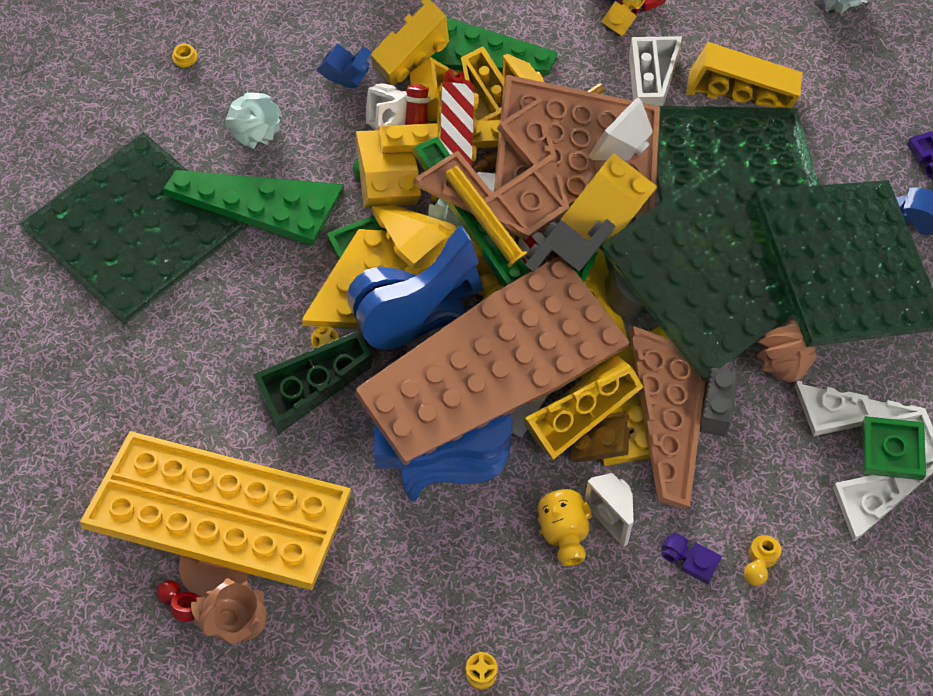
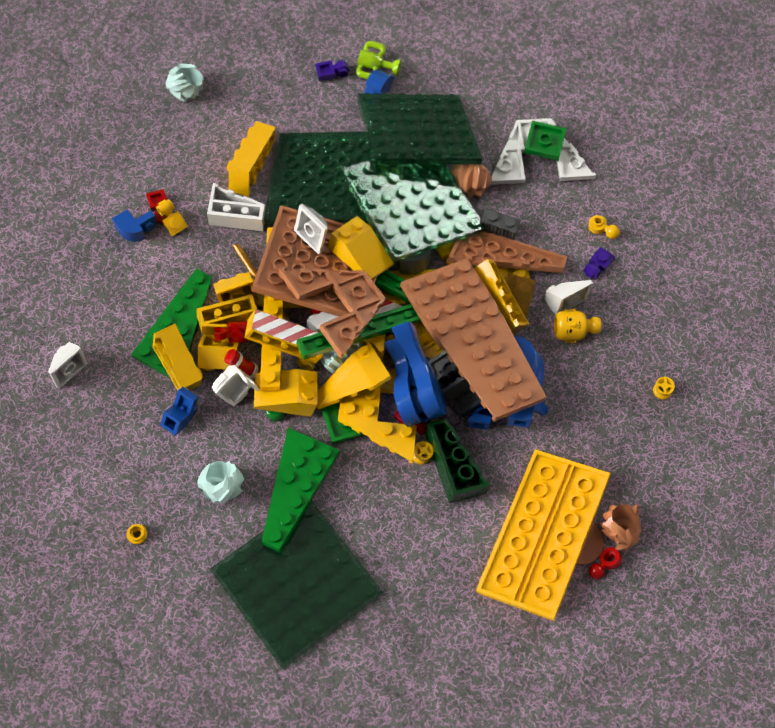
camera: 85 degrees left, 5 degrees up
(484, 215) = (375, 317): yellow axle -> none
(569, 244) = (399, 270): dark grey bracket -> none

